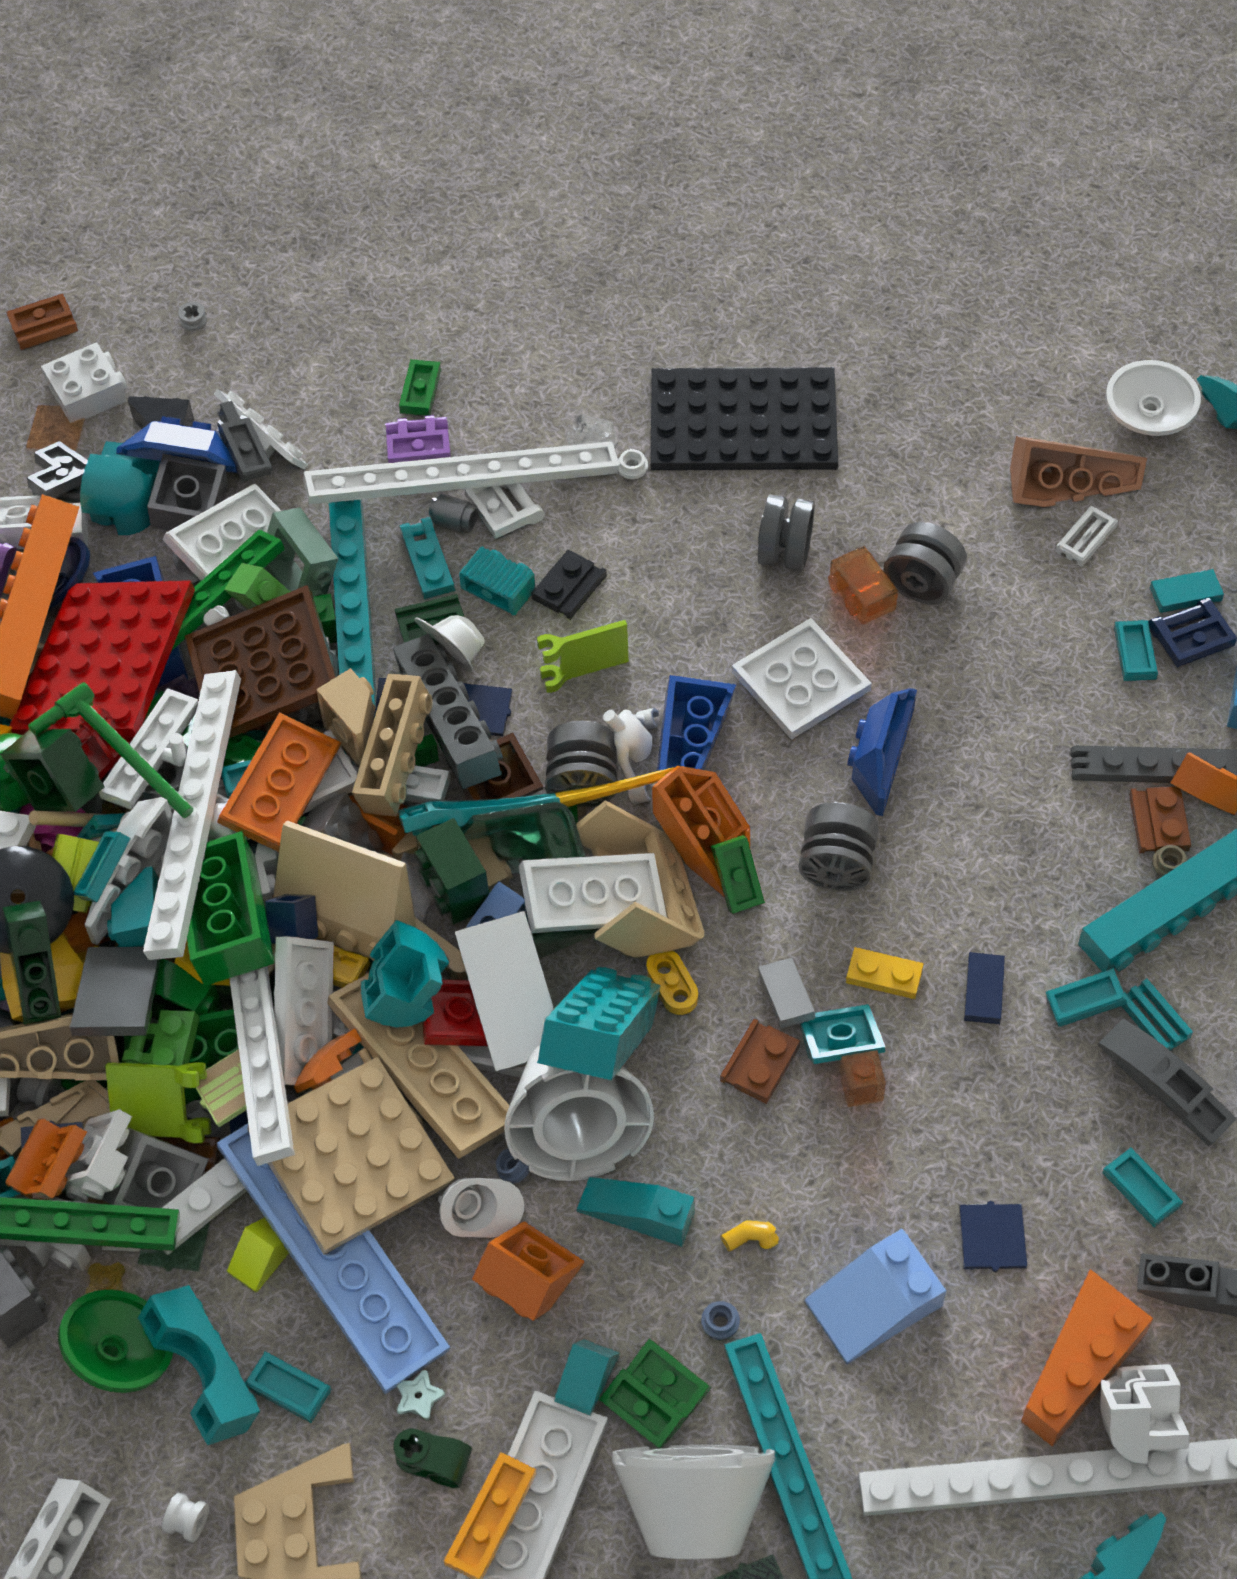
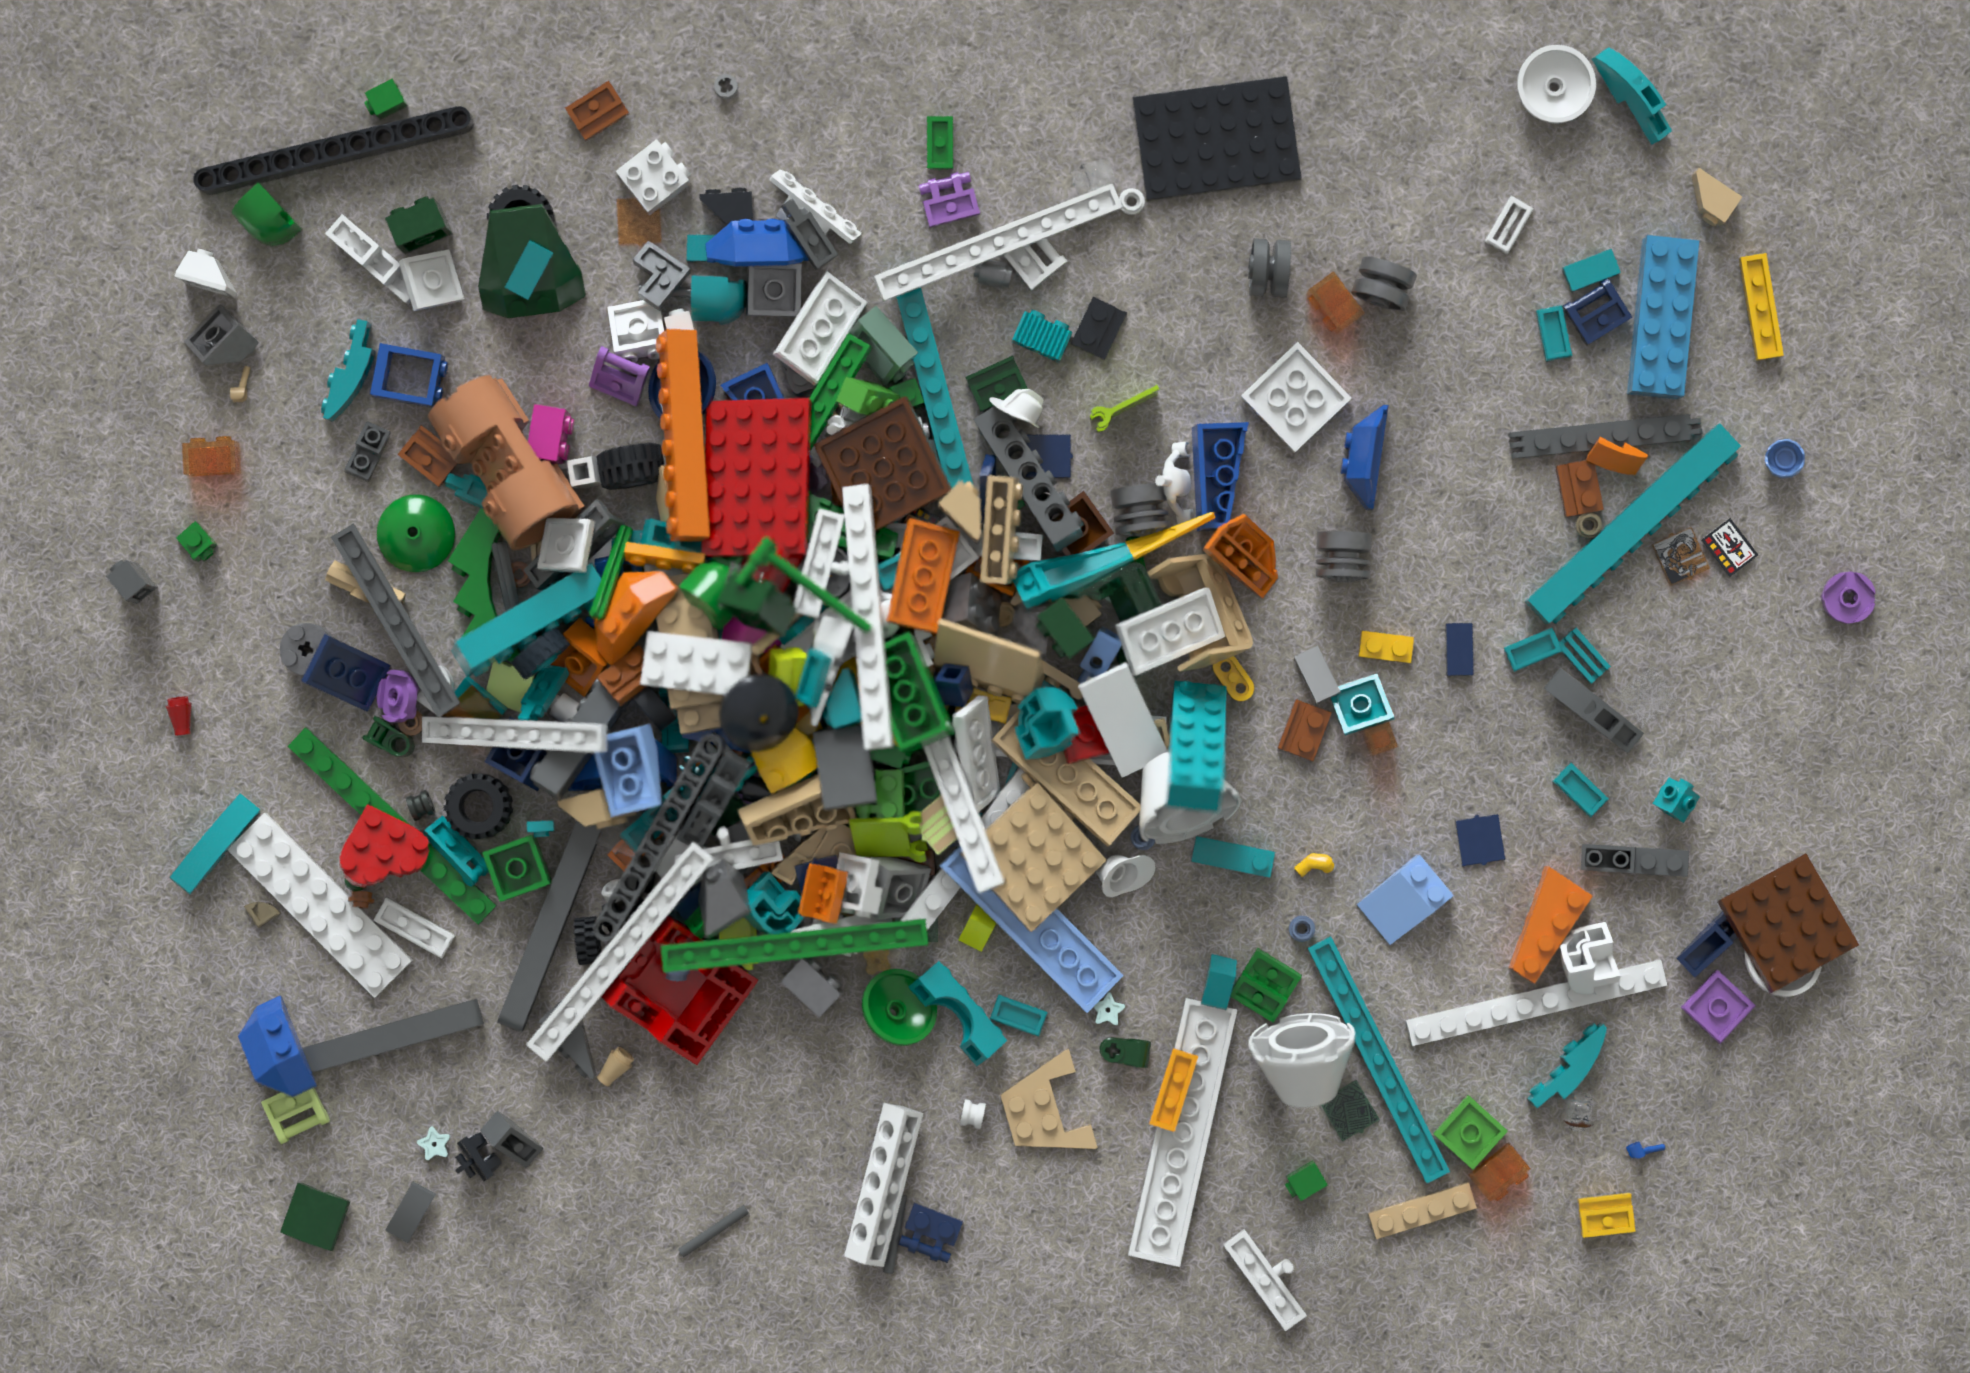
camera: 10 degrees left, 30 degrees up
(32, 961) = (782, 759): dark green slope -> none
(326, 1061) = (998, 790): orange slope -> none
(427, 558) = (979, 318): teal plate -> none
(526, 1270) = (1166, 913): orange slope -> none
(737, 874) = (1270, 586): green plate -> none
(1058, 472) = (1482, 163): nougat wedge -> none

